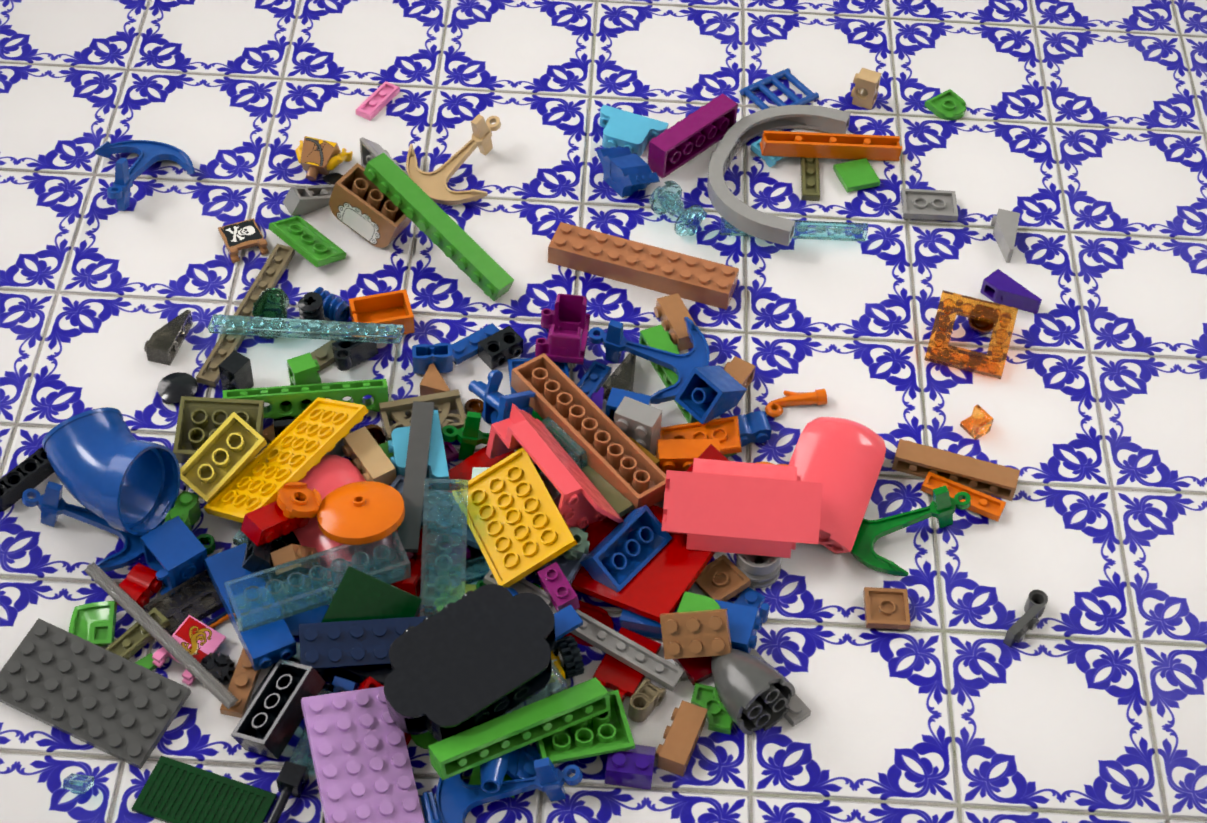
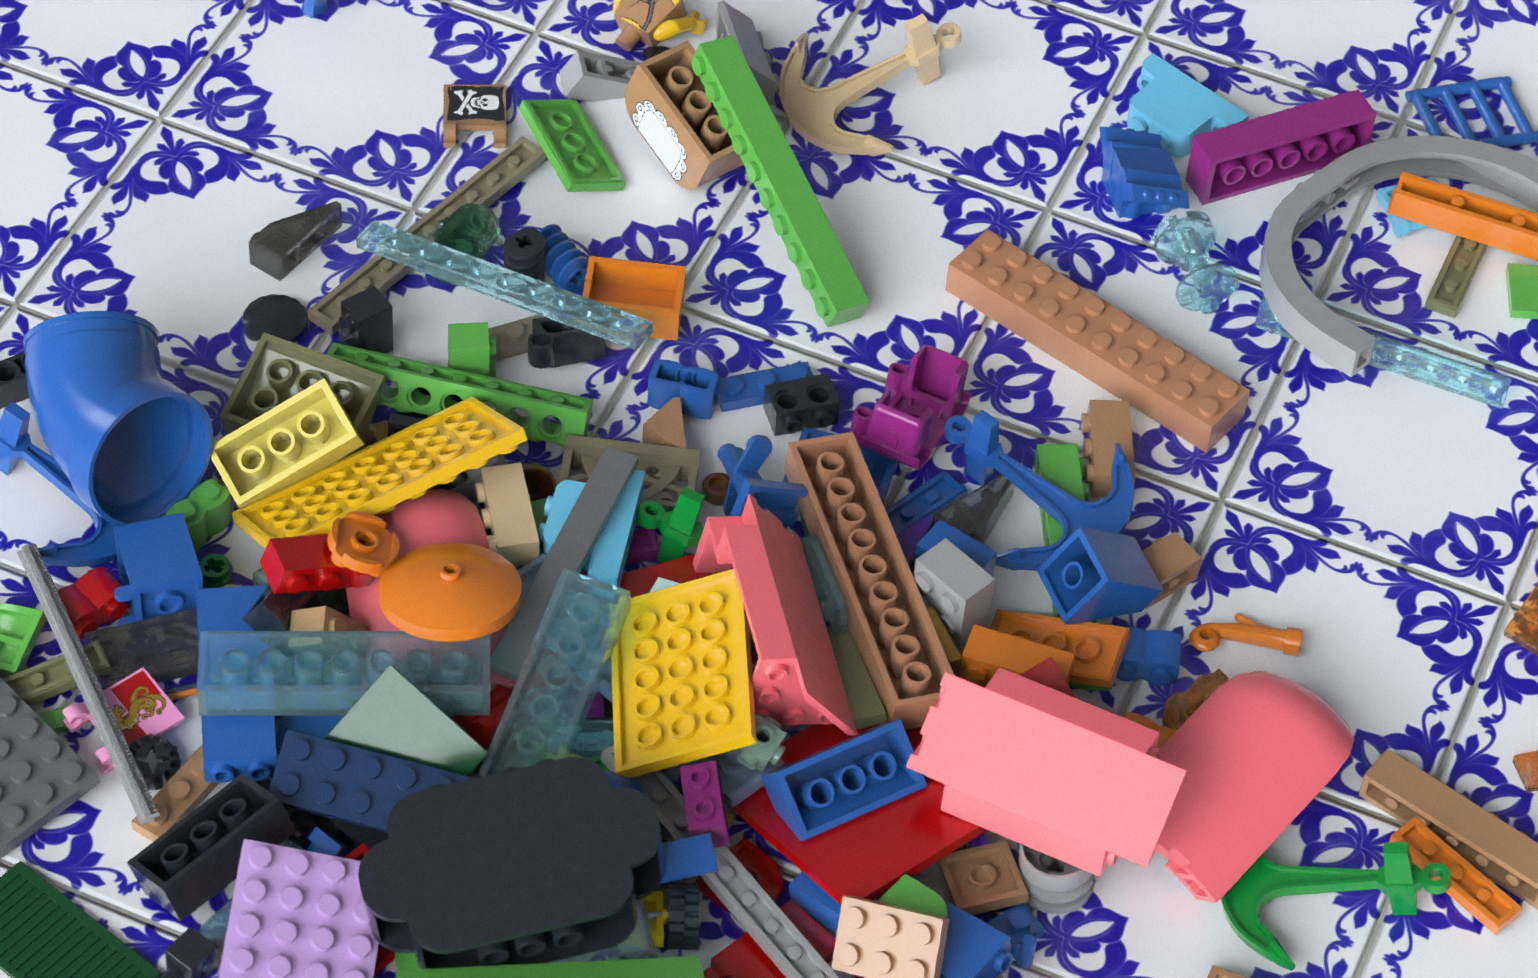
camera: 20 degrees right, 0 degrees up
(787, 448) = (1183, 705): none -> clear orange plate

